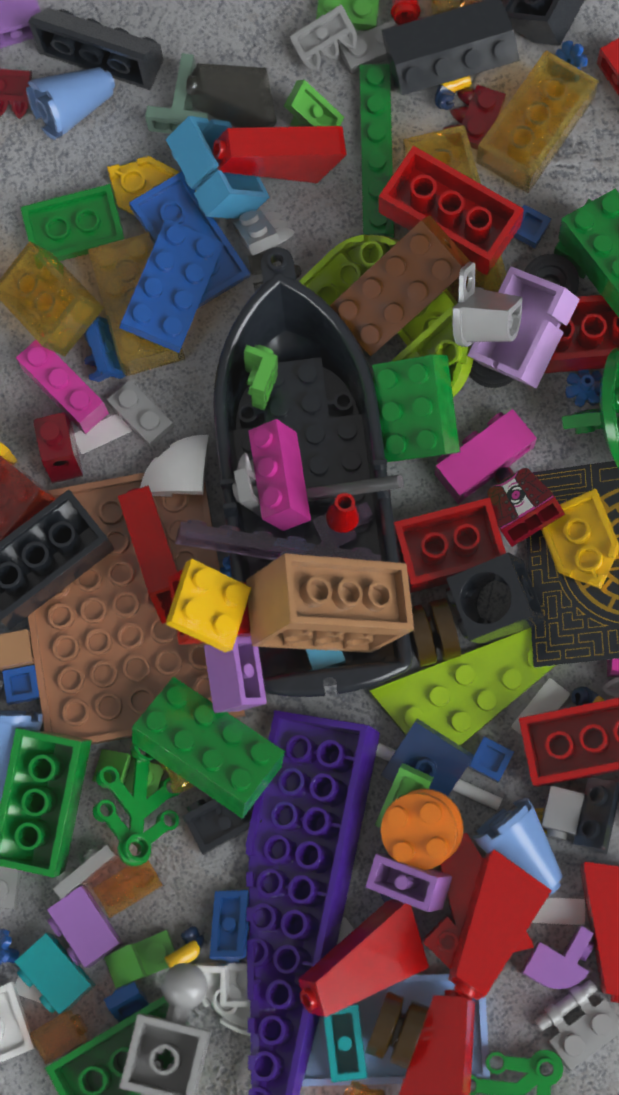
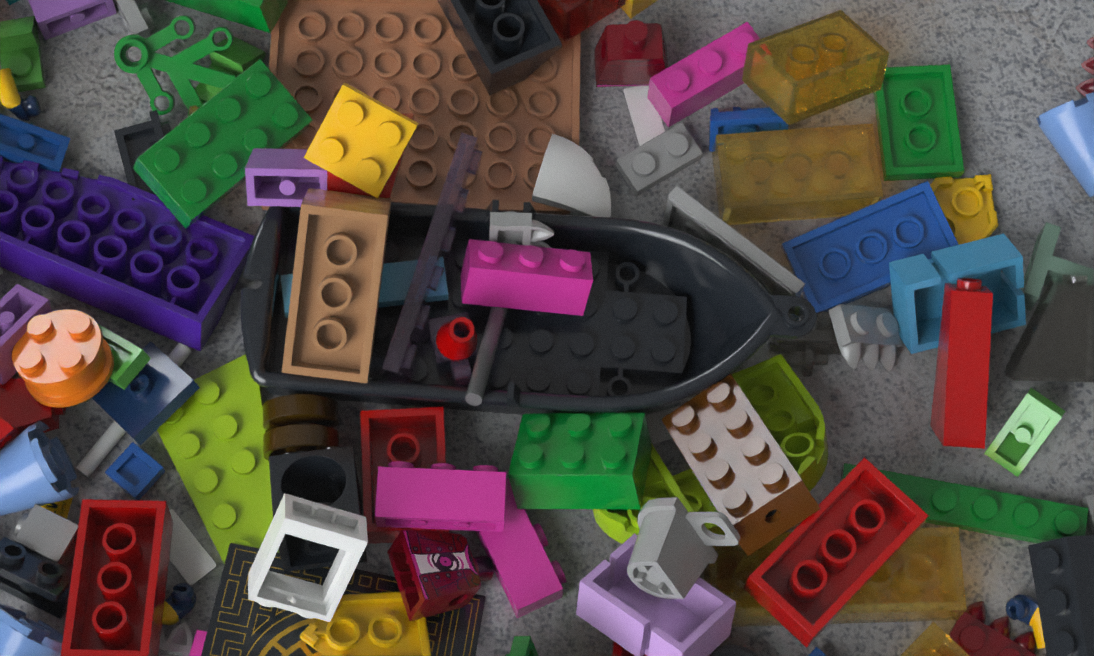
camera: 90 degrees right, 5 degrees down
(127, 888) = (96, 46): clear orange hips -> none
(150, 546) = (500, 126): red slope -> none
(171, 285) = (804, 207): blue plate -> none
(209, 347) = (693, 218): none -> light grey tile
(263, 373) = (650, 281): bright green bracket -> none
(472, 502) = (441, 497): none -> dark pink brick
(529, 565) = (317, 524): none -> white window

